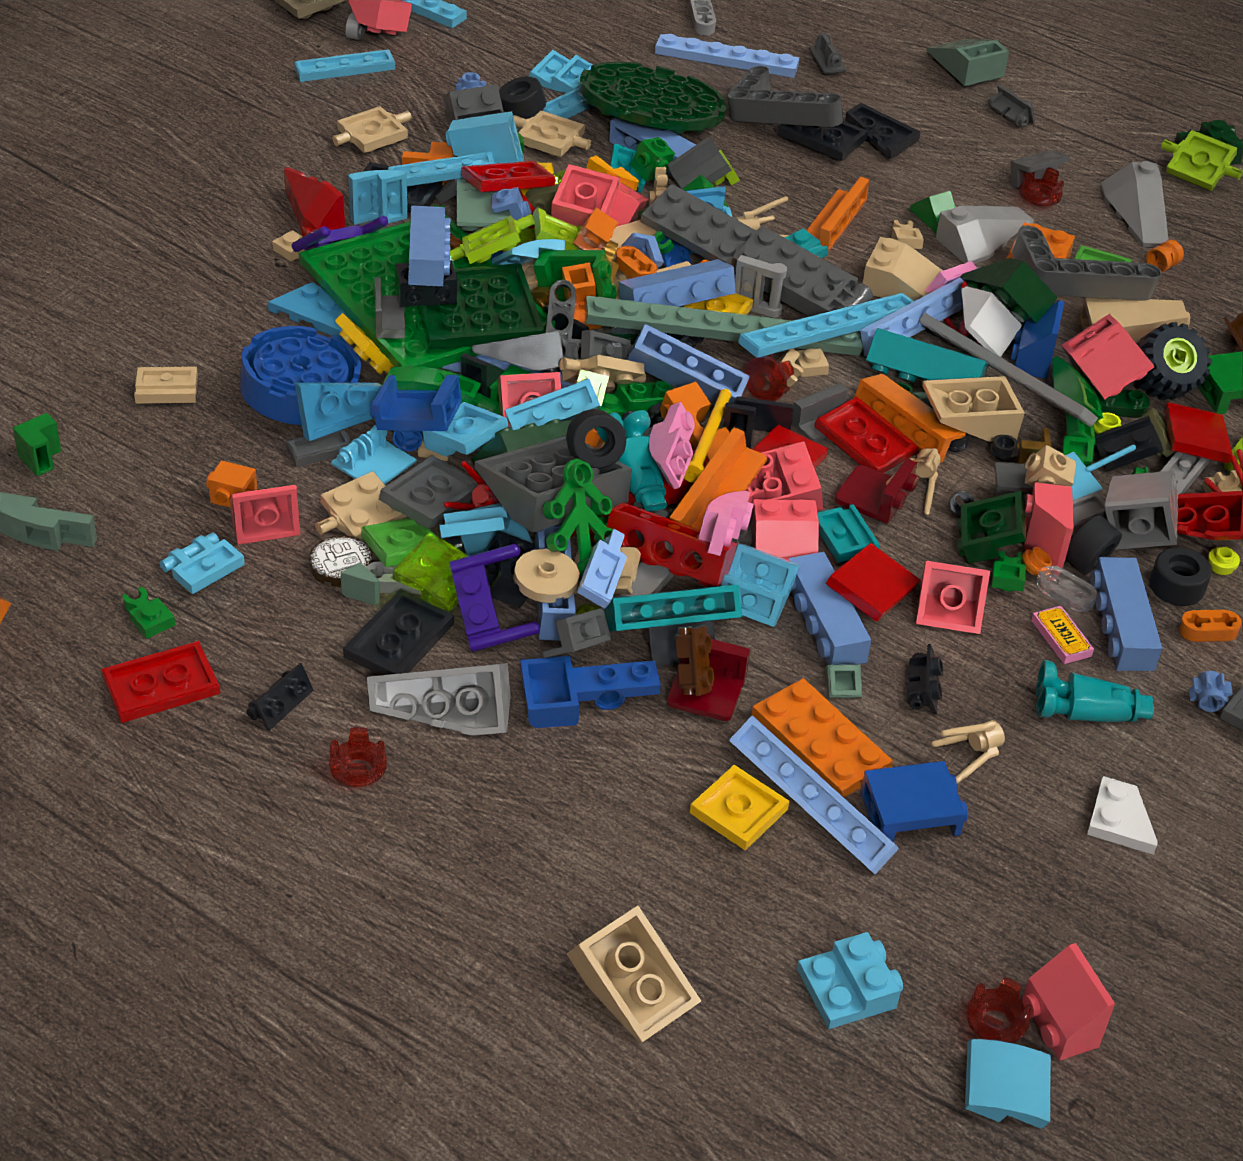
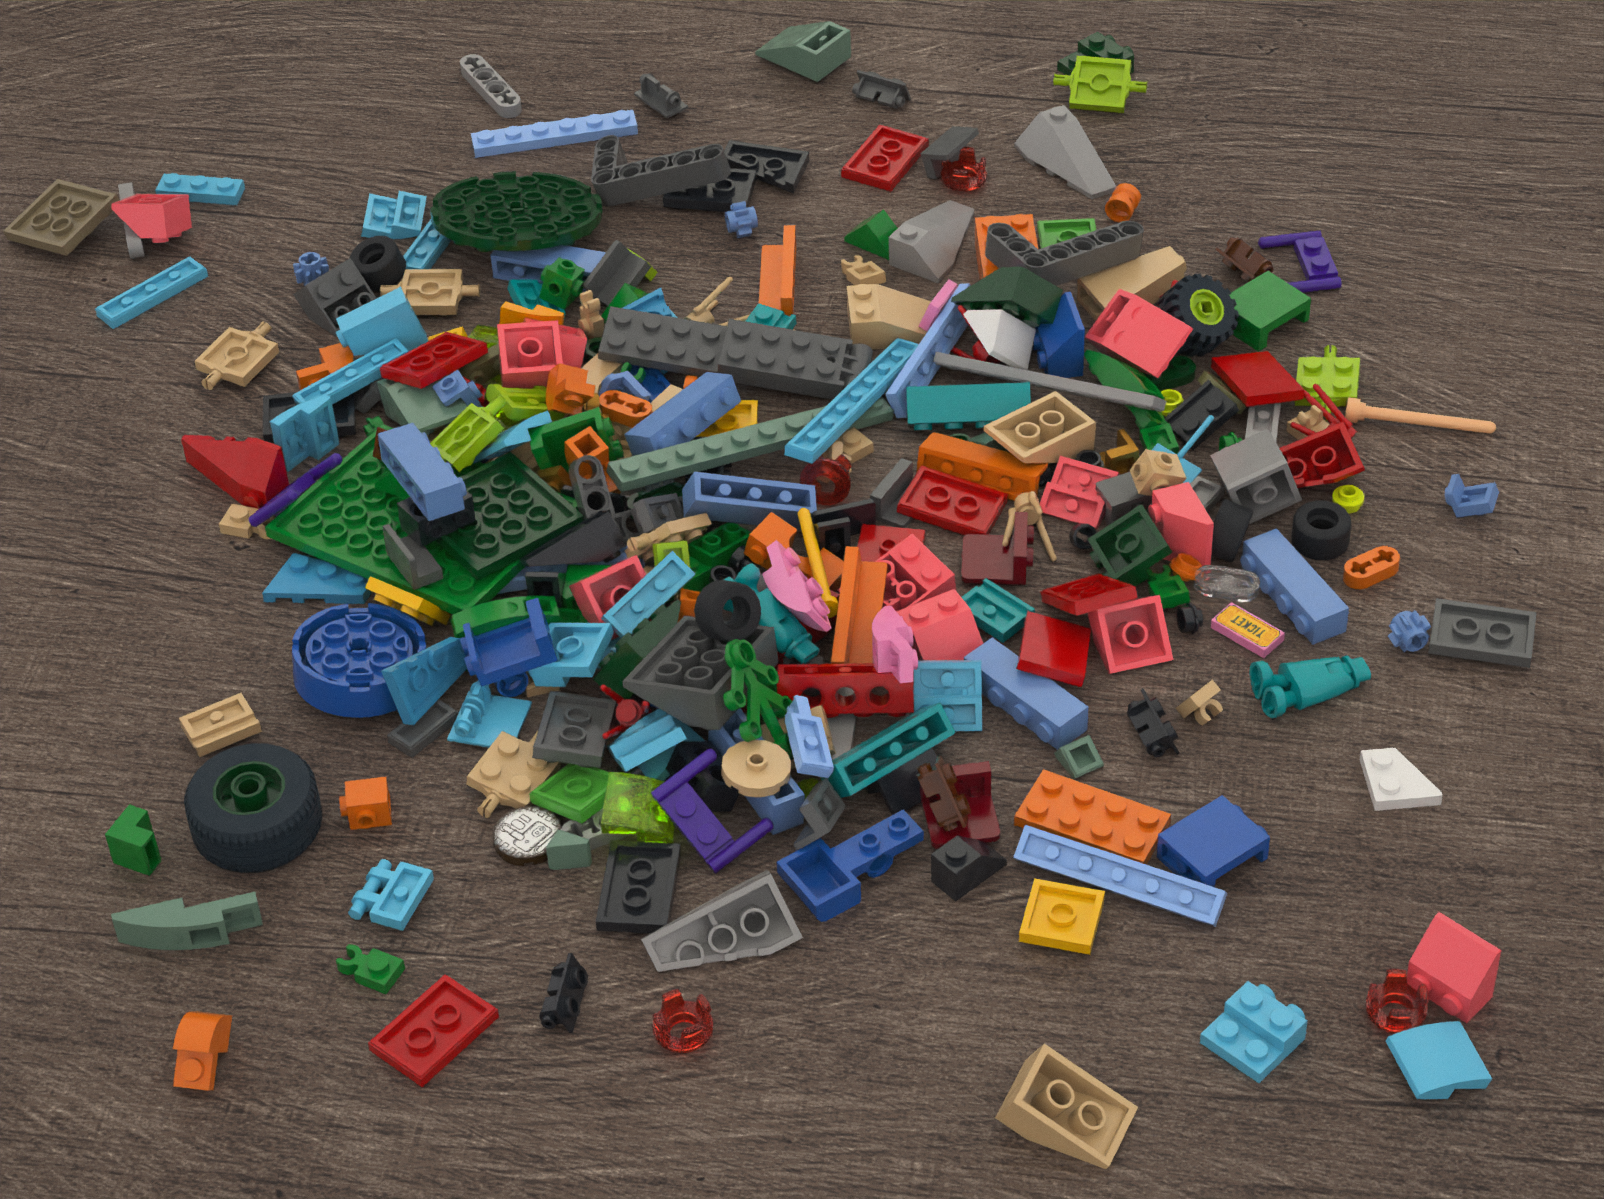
camera: 20 degrees left, 0 degrees up
(140, 453) = (253, 808): none -> black wheel
(265, 514) = (424, 818): coral slope -> none
(682, 728) = (963, 865): none -> black slope
(750, 283) = (750, 385): light grey plate -> none
(831, 162) = (741, 219): none -> medium blue gear
(931, 548) = (1088, 594): none -> red tile
(974, 465) = (1073, 492): none -> coral slope
(978, 675) = (1199, 702): none -> tan tile
(982, 158) = (884, 158): none -> red tile
(982, 738) = (1236, 760): tan plant -> none
(1014, 604) = (1189, 618): none -> black plate

